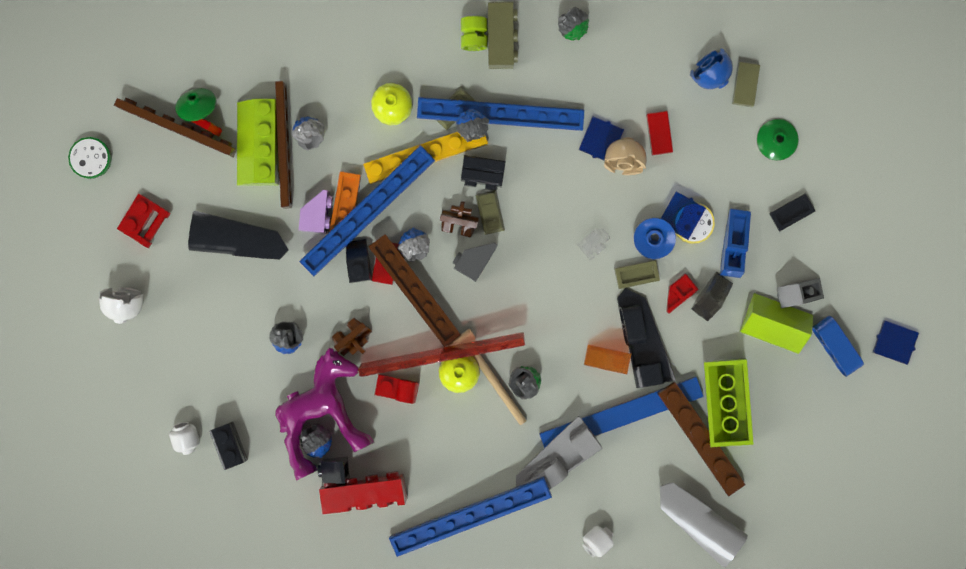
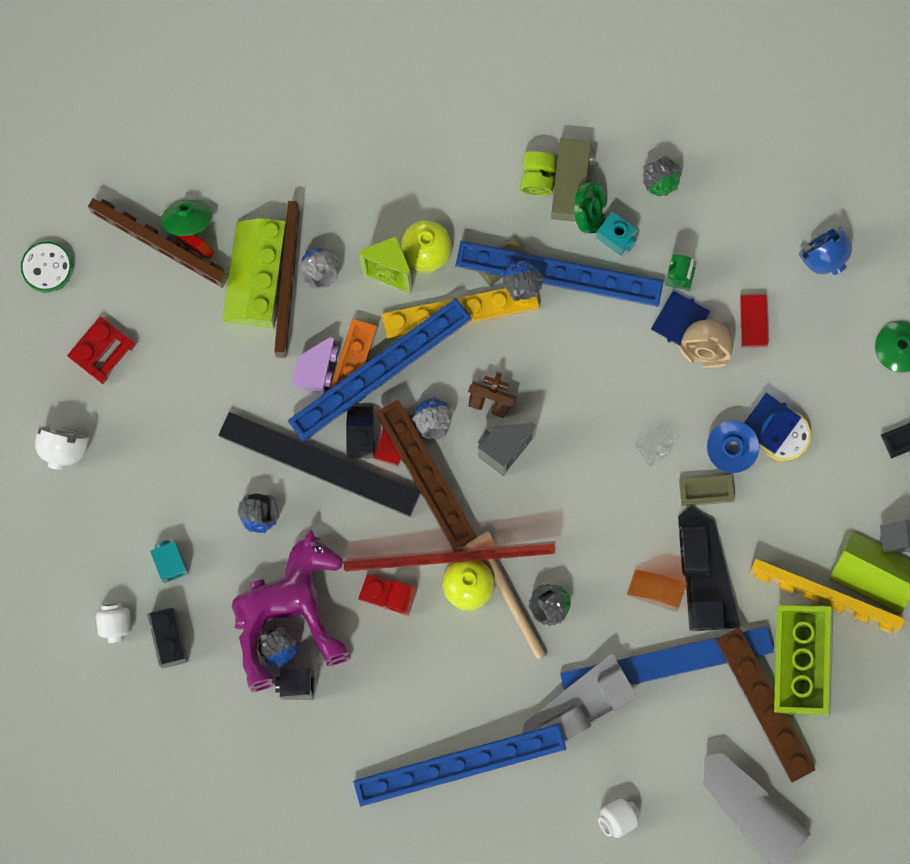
camera: 15 degrees right, 10 degrees down
(221, 384) = (168, 561): none -> teal brick
(232, 237) = (210, 383): black panel -> none
(329, 291) = (319, 464): none -> black tile
(354, 340) = (342, 526): reddish brown hips -> none
(361, 124) = (387, 264): none -> lime slope
(363, 493) = (328, 719): red wedge -> none
(482, 172) = (528, 340): black brick -> none
(490, 212) = (531, 392): olive tile -> none
(518, 57) = (588, 207): none -> green tile
(543, 76) = (617, 234): none -> teal brick
(597, 101) = (680, 272): none -> green leg
(680, 292) = (758, 518): red tile -> none
(712, 297) = (797, 528): clear smoke slope -> none
(735, 243) = (834, 466): blue slope -> none
(746, 84) = (868, 274): olive tile -> none
(748, 351) = (815, 592): none -> yellow plate

